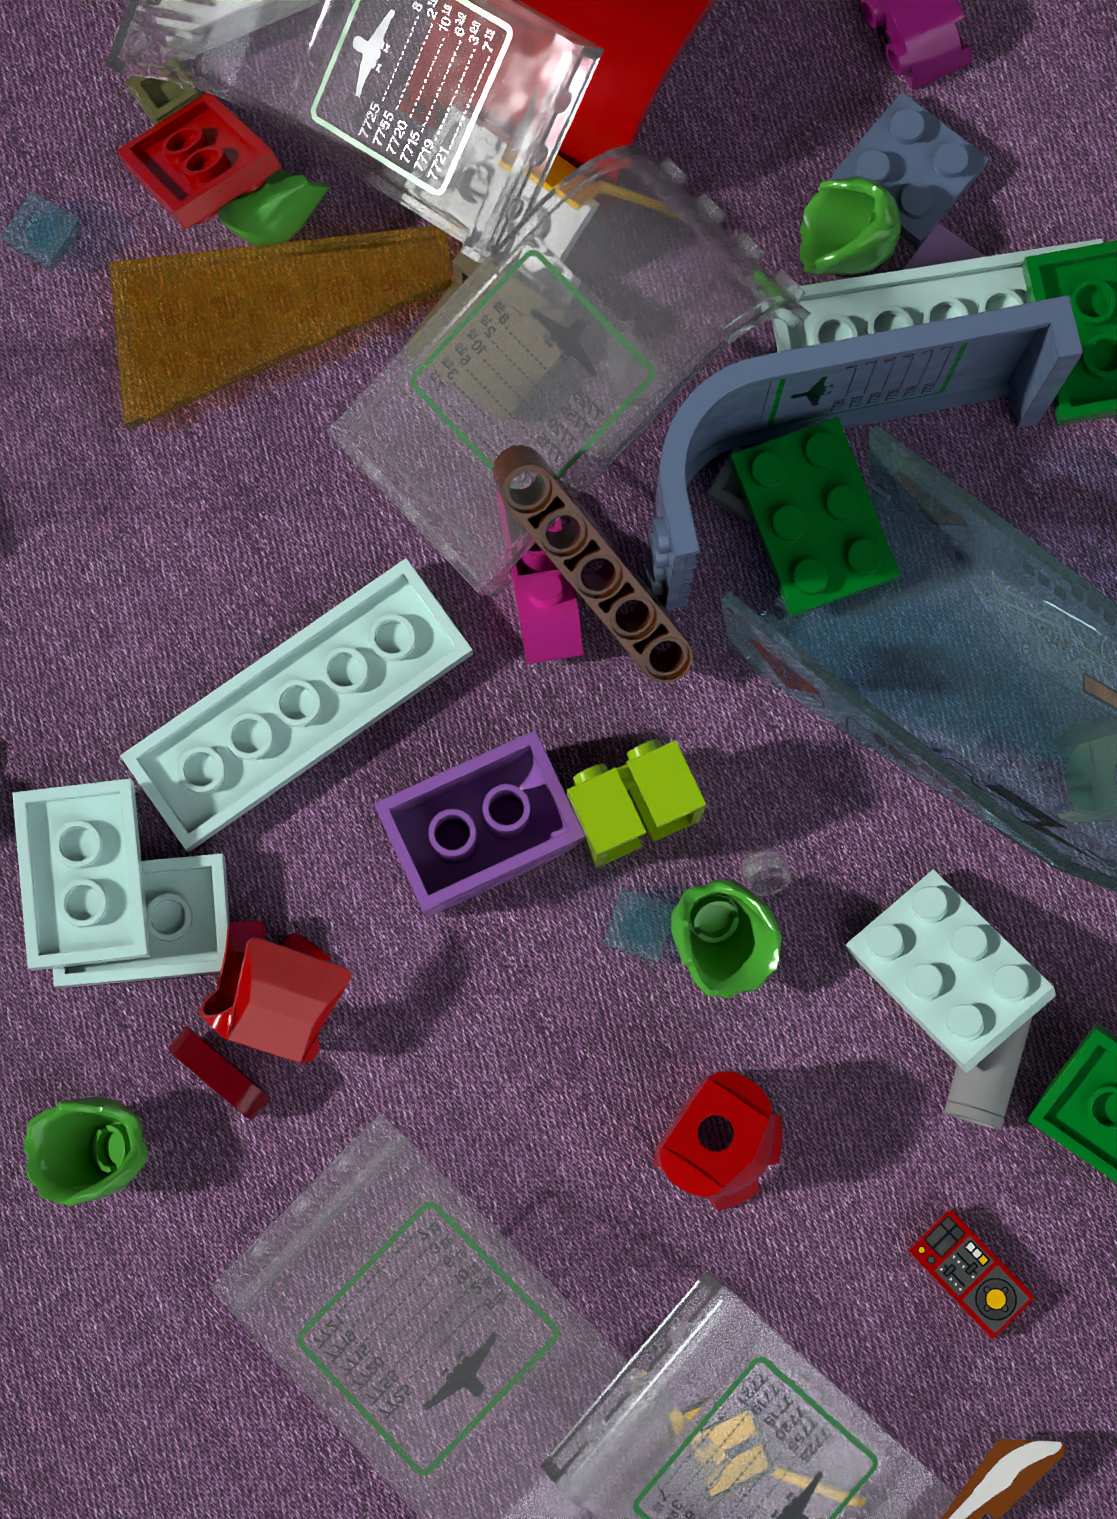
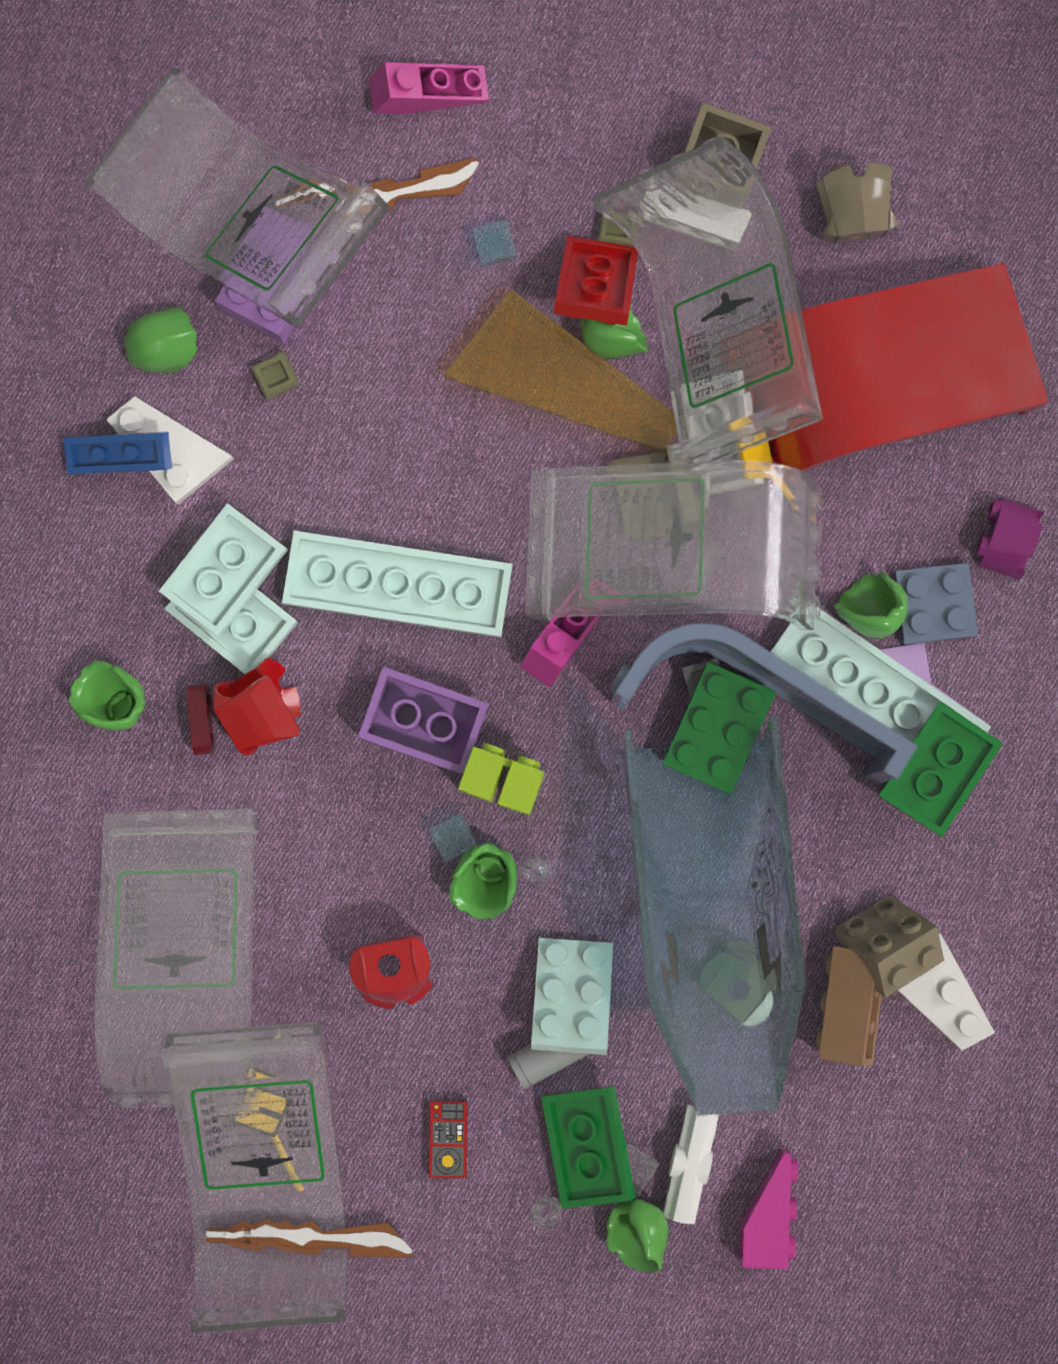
camera: 50 degrees right, 5 degrees up
(581, 543) = (592, 639): reddish brown beam -> none

